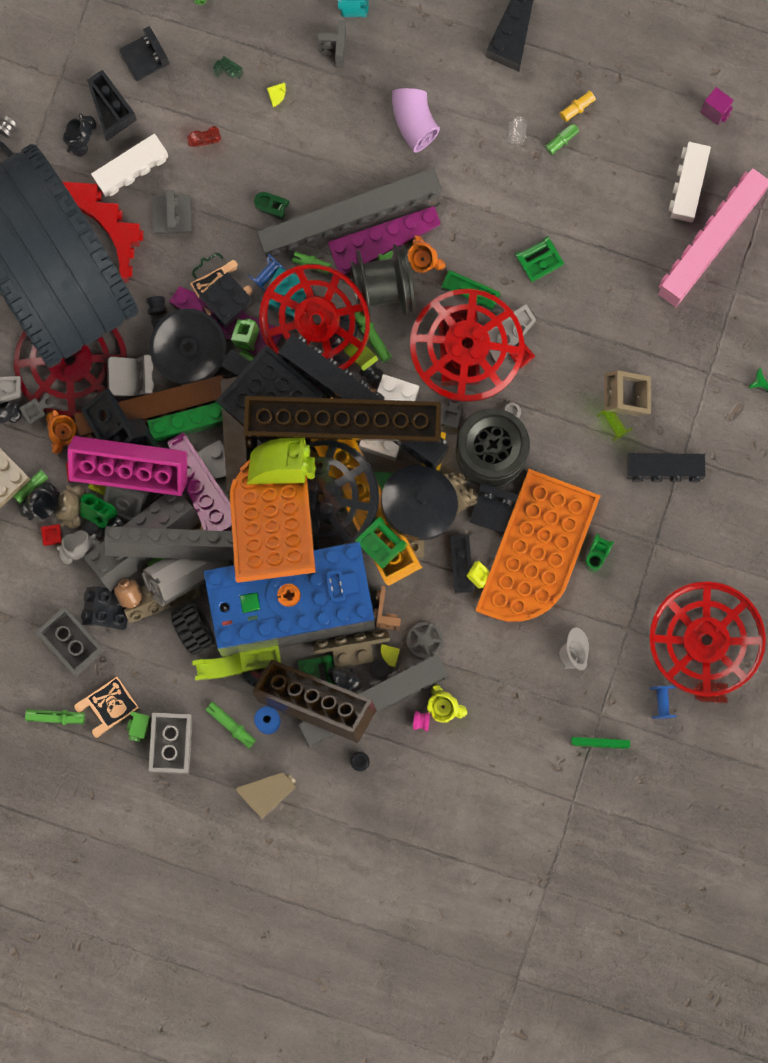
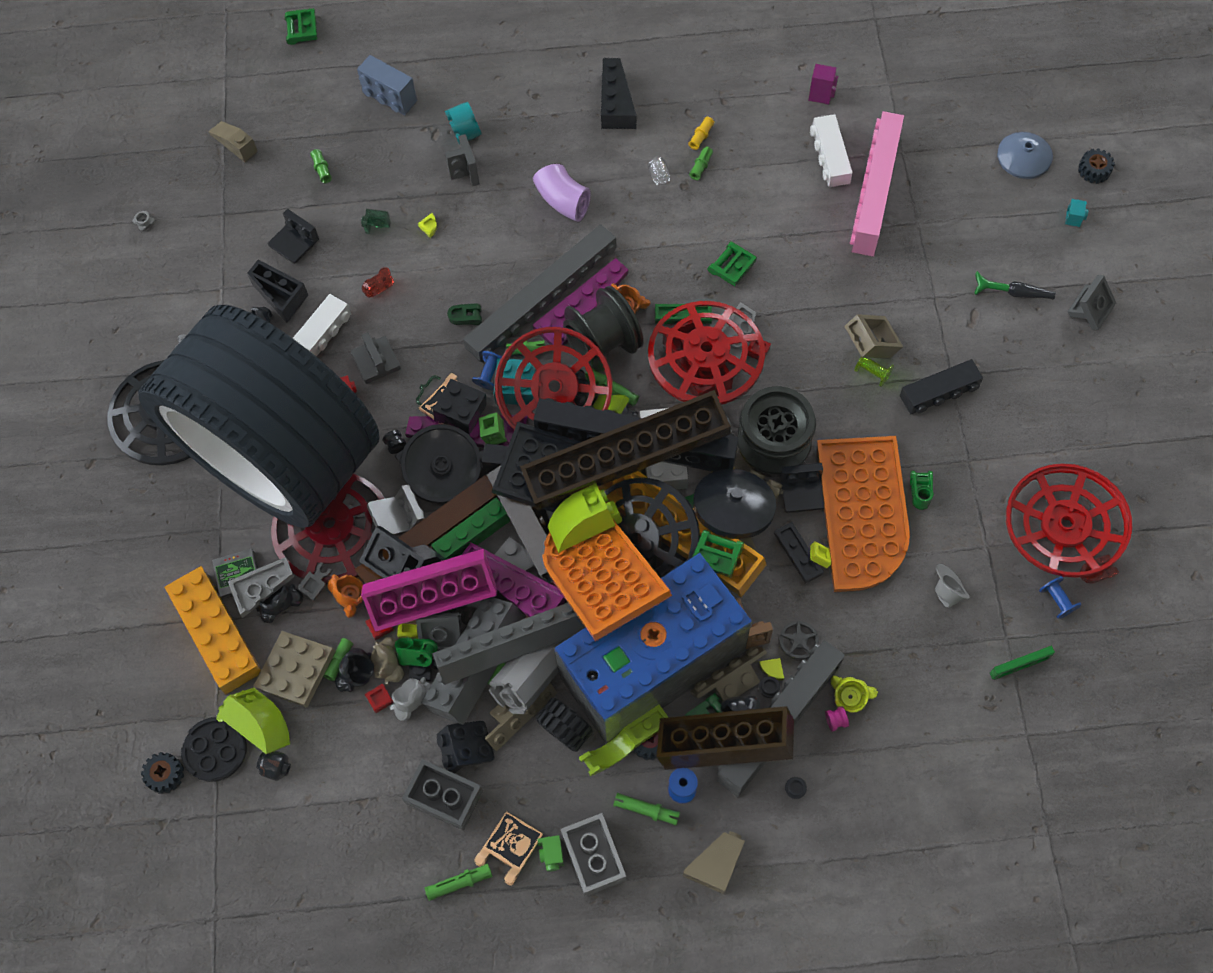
camera: 20 degrees left, 15 degrees down
(128, 593) = (482, 718): medium nougat head -> none

